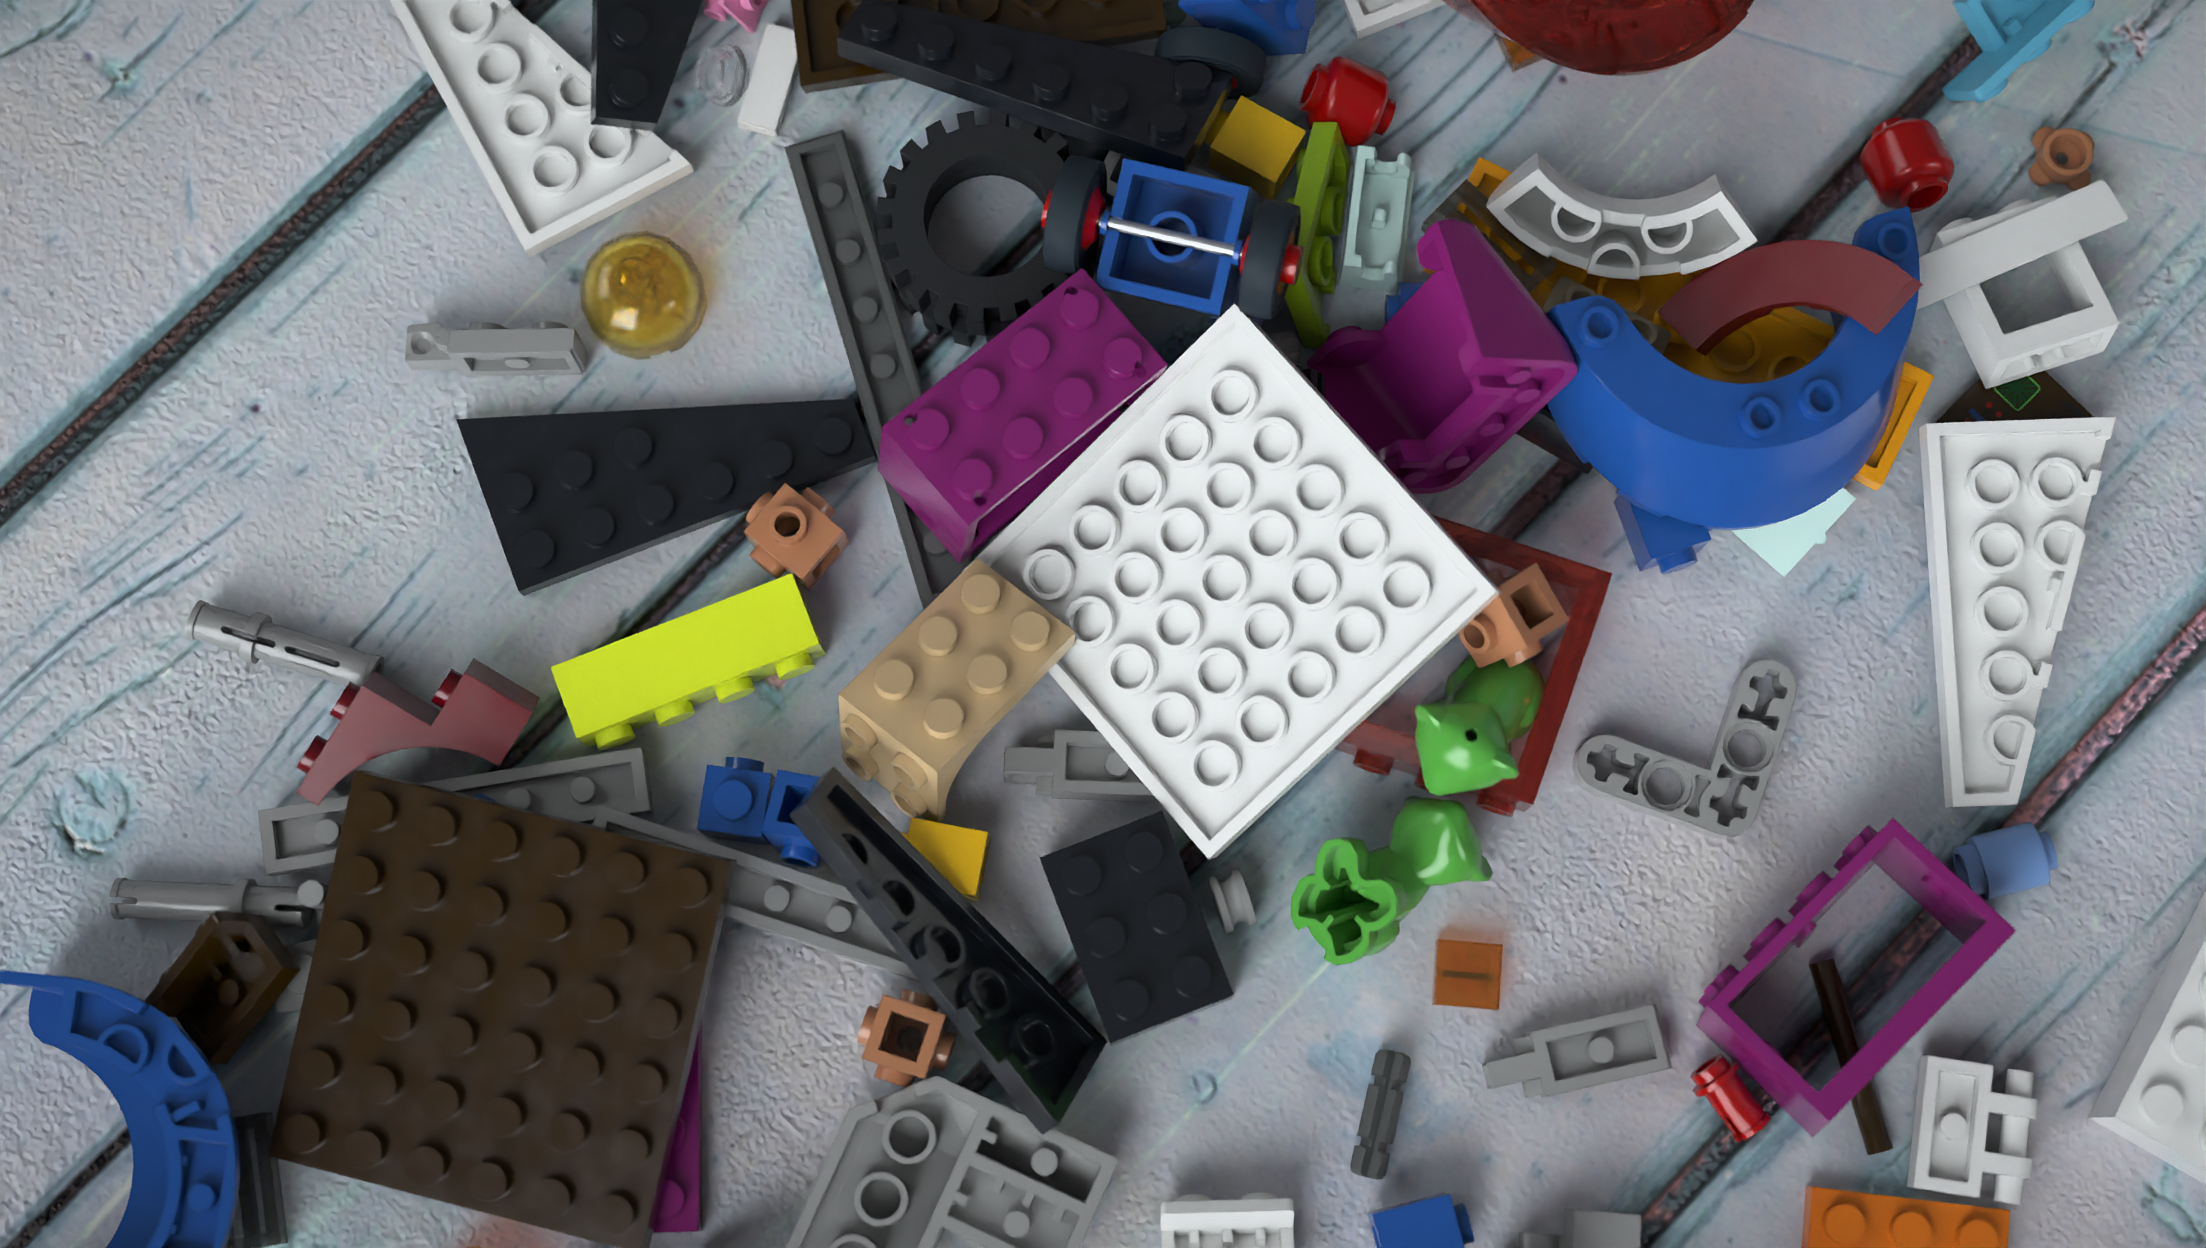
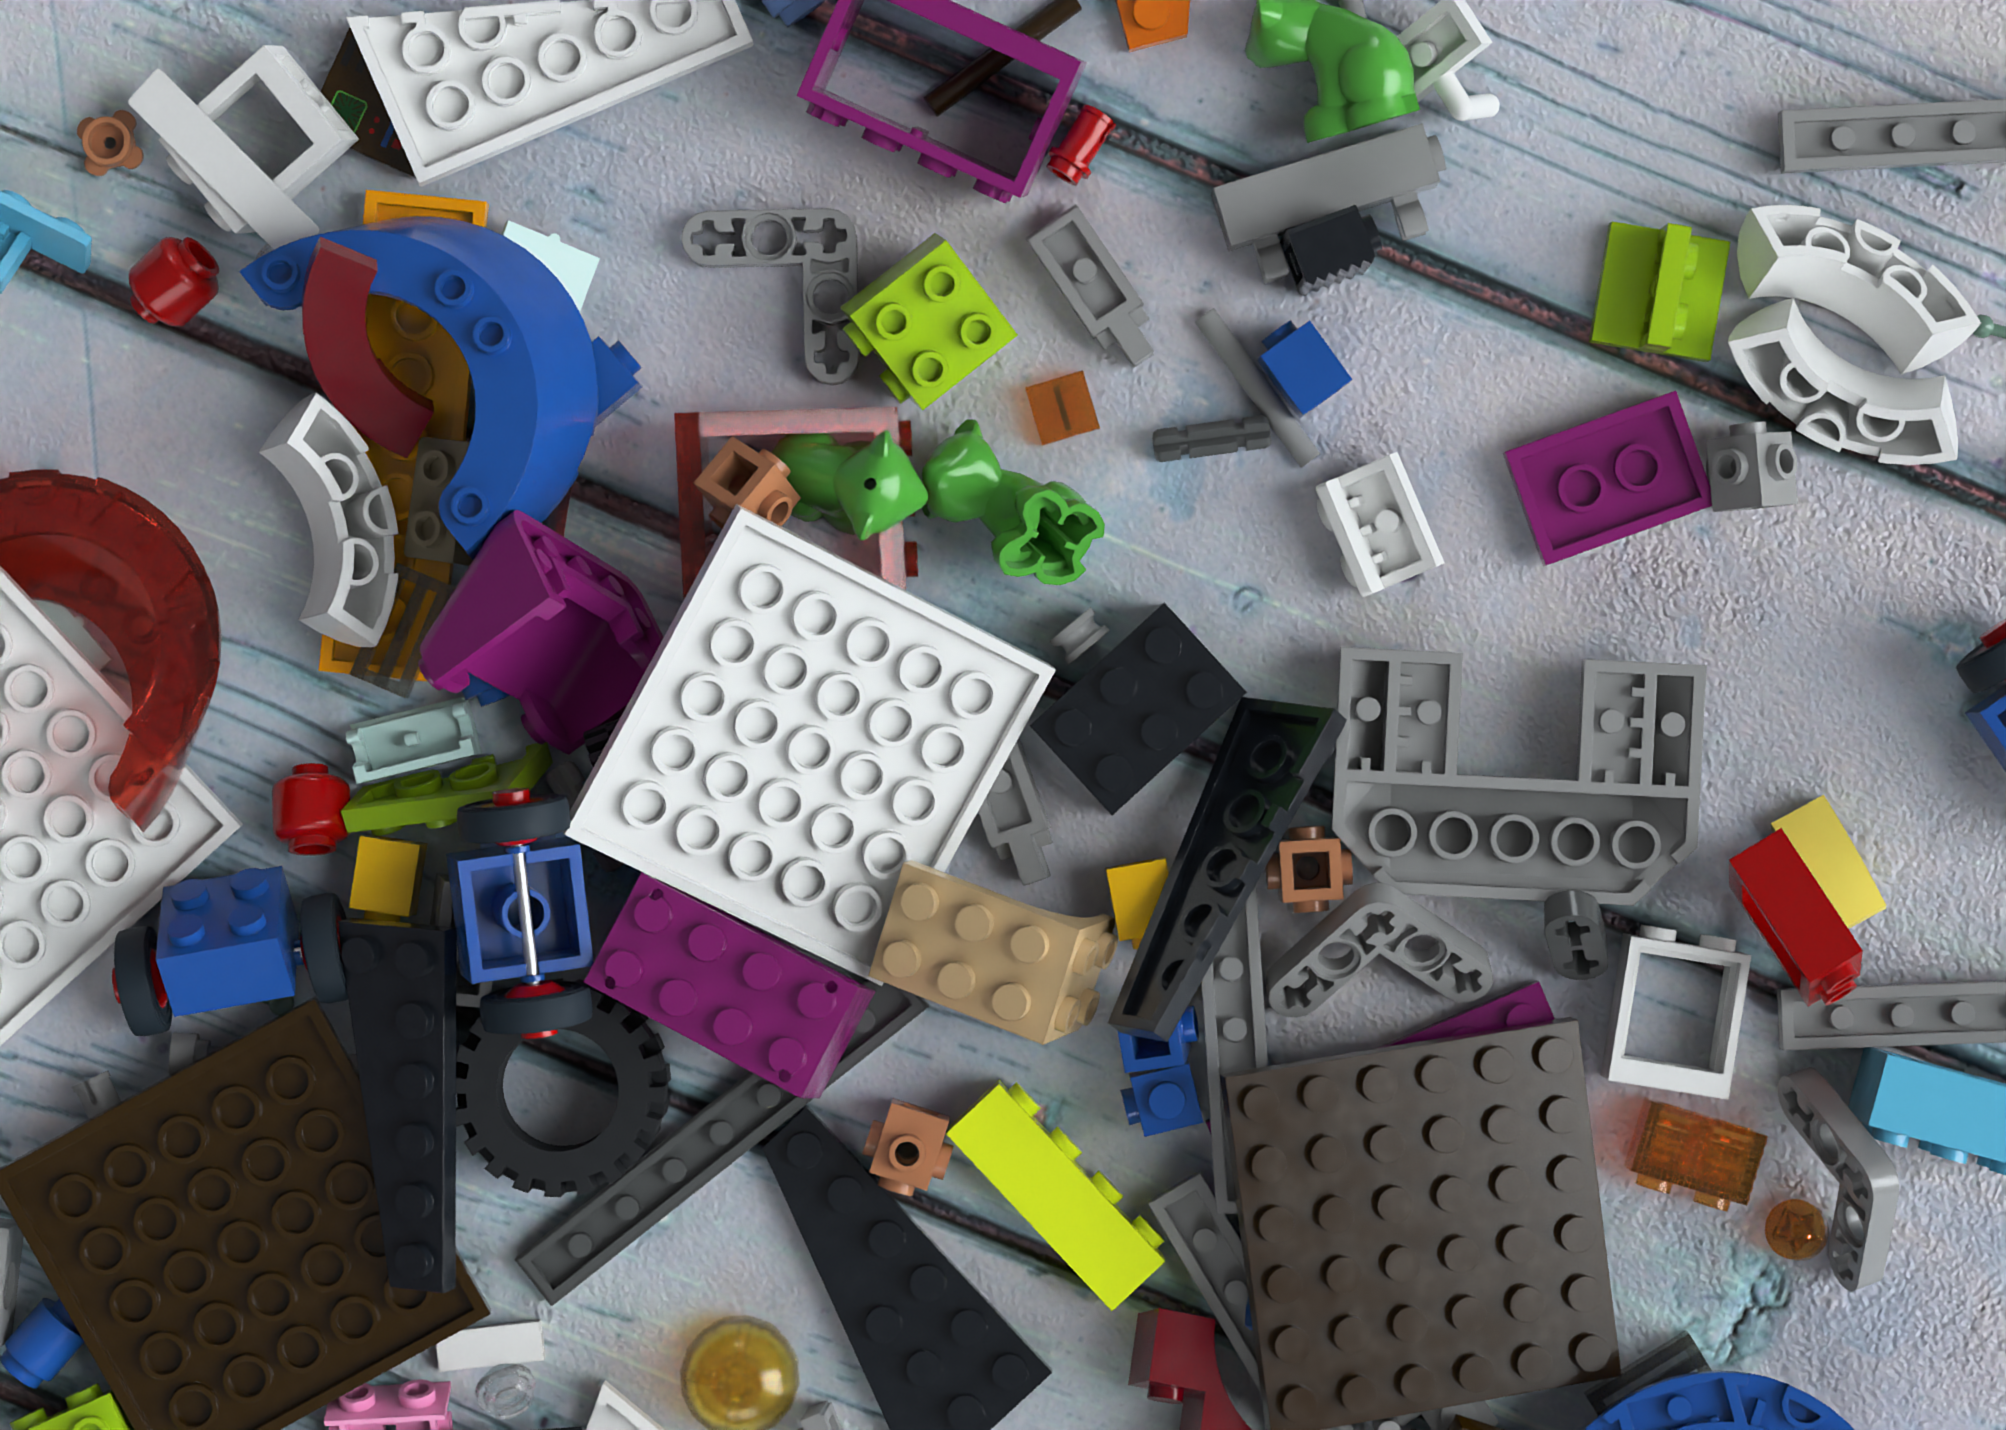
camera: 110 degrees left, 10 degrees up
(807, 1087) = (1381, 935): none -> light grey beam
(1414, 1182) = (1257, 387): none -> light grey bar
(1606, 866) = (926, 323): none -> lime brick

